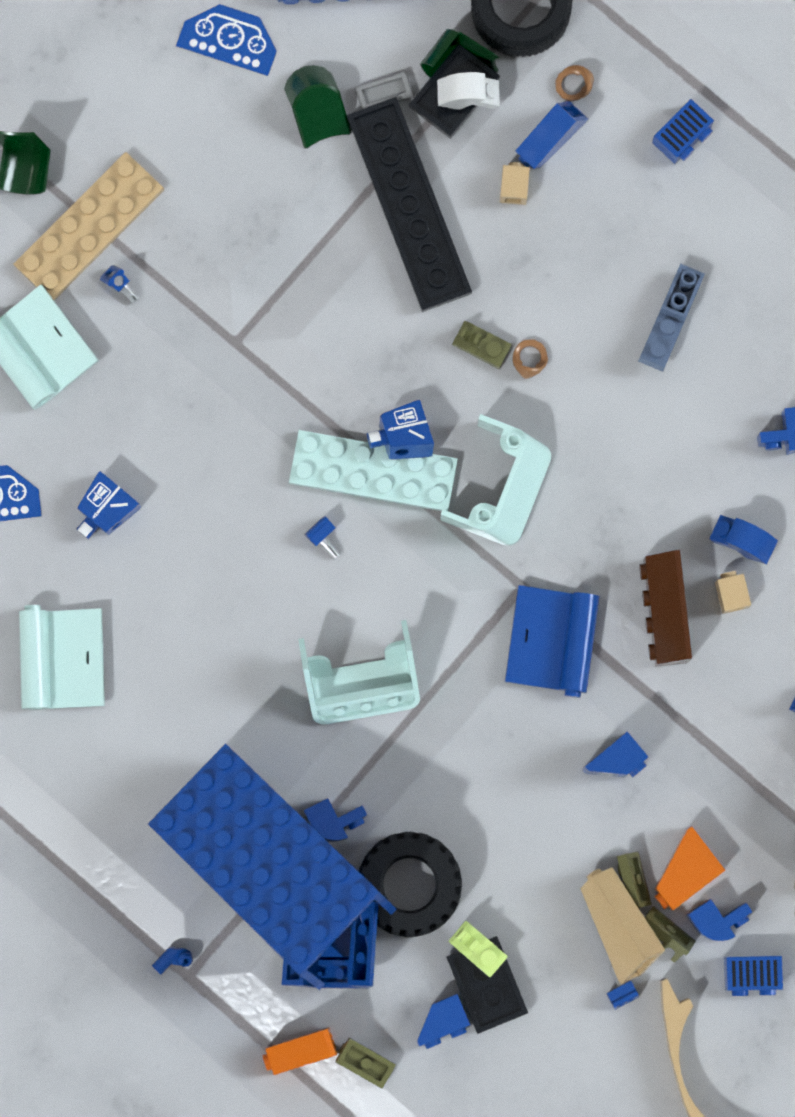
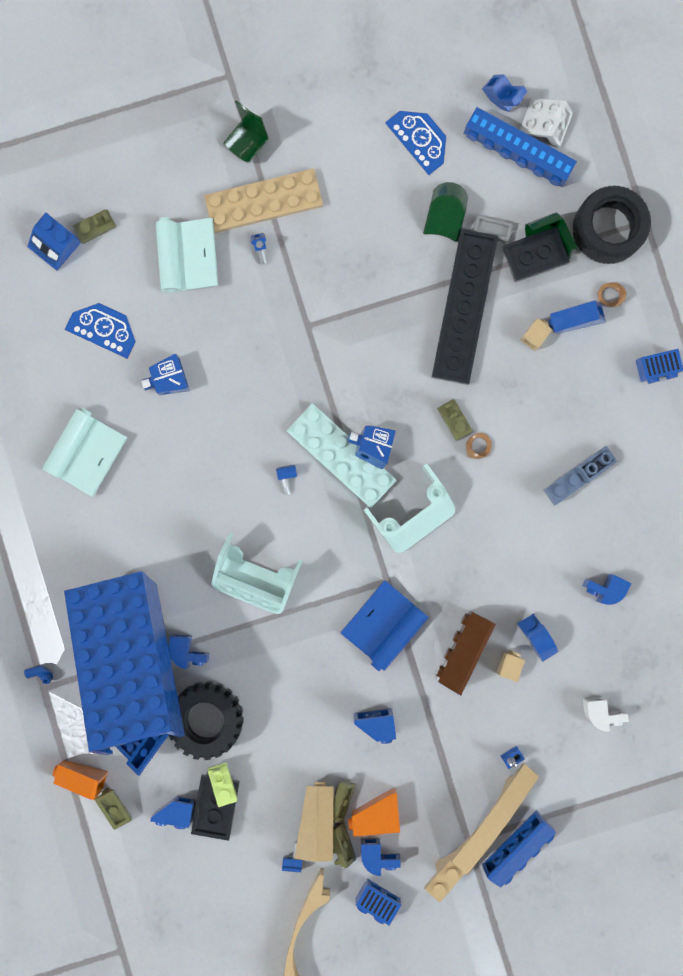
camera: 30 degrees right, 5 degrees up
(468, 89) = (544, 257): white brick -> none

